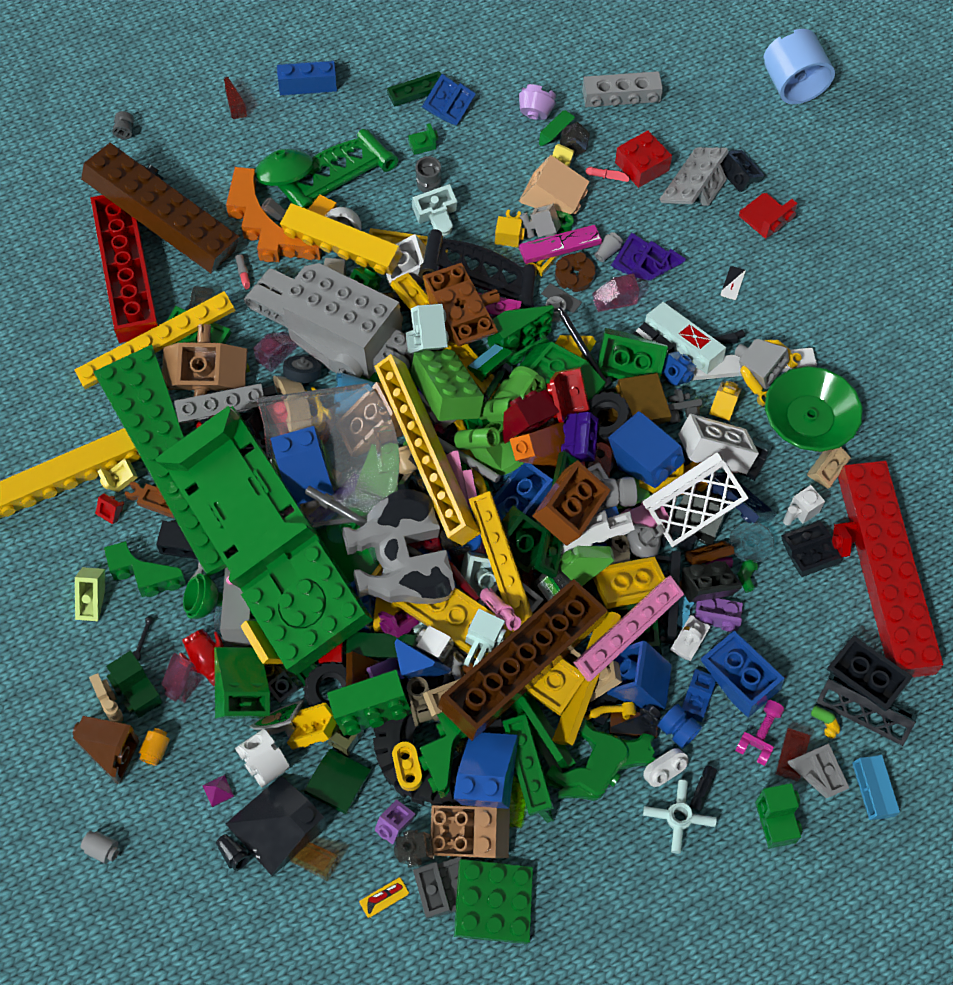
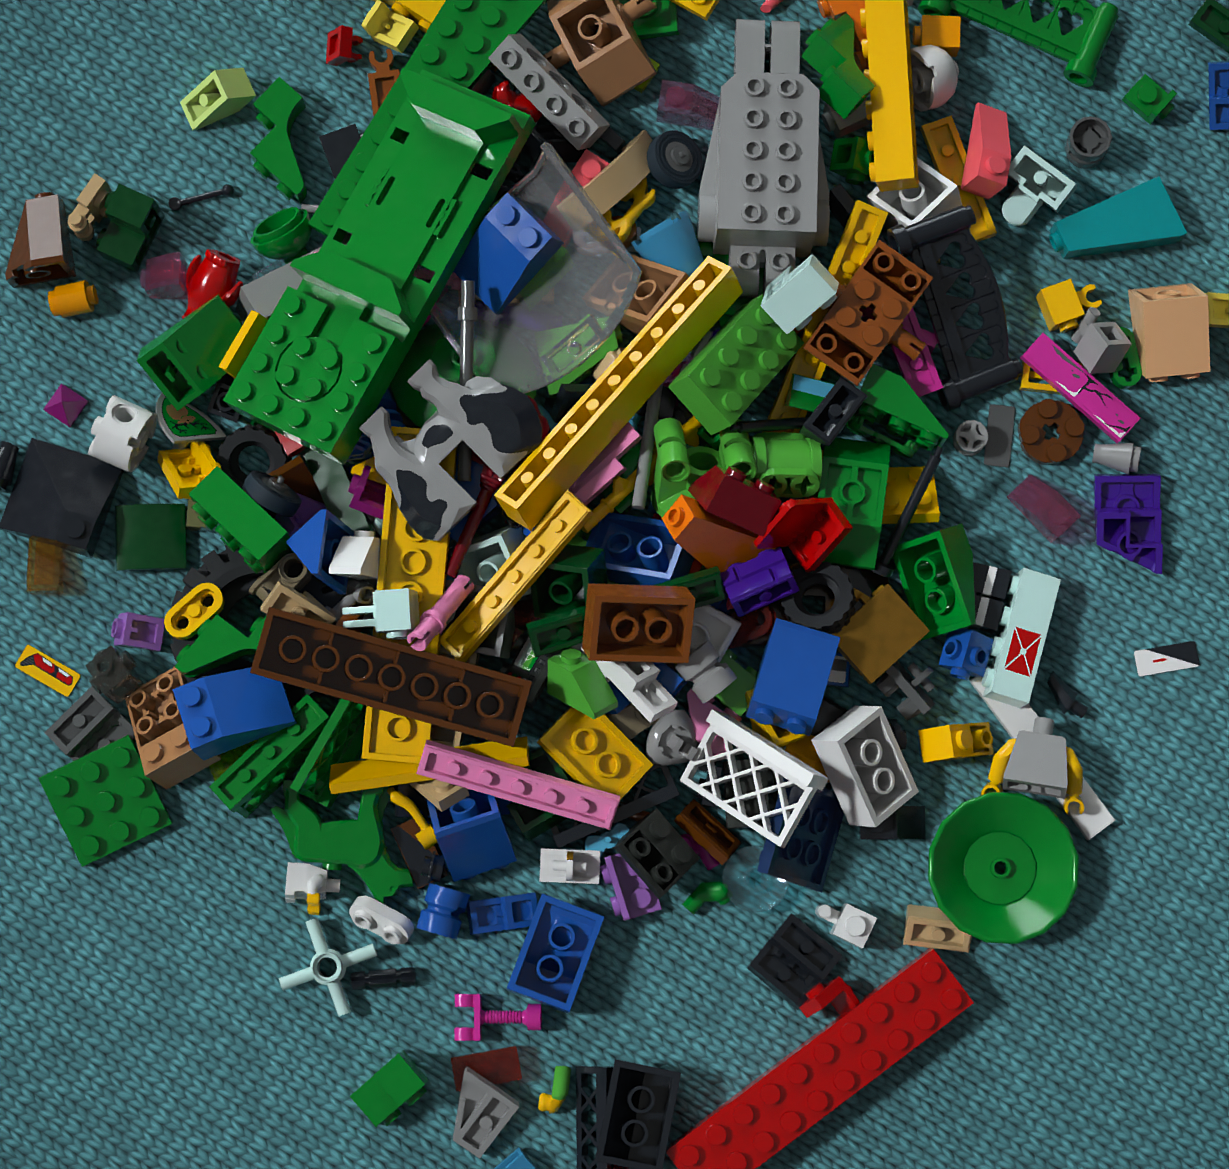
camera: 60 degrees right, 20 degrees up
(298, 255) = (832, 55): none -> green arch
(363, 672) = (272, 493): none -> black wheel
(404, 220) = (987, 153): none -> coral slope
(483, 179) = (1120, 223): none -> teal slope
(505, 352) = (833, 412): none -> black slope
(618, 800) = (309, 883): none -> white piece

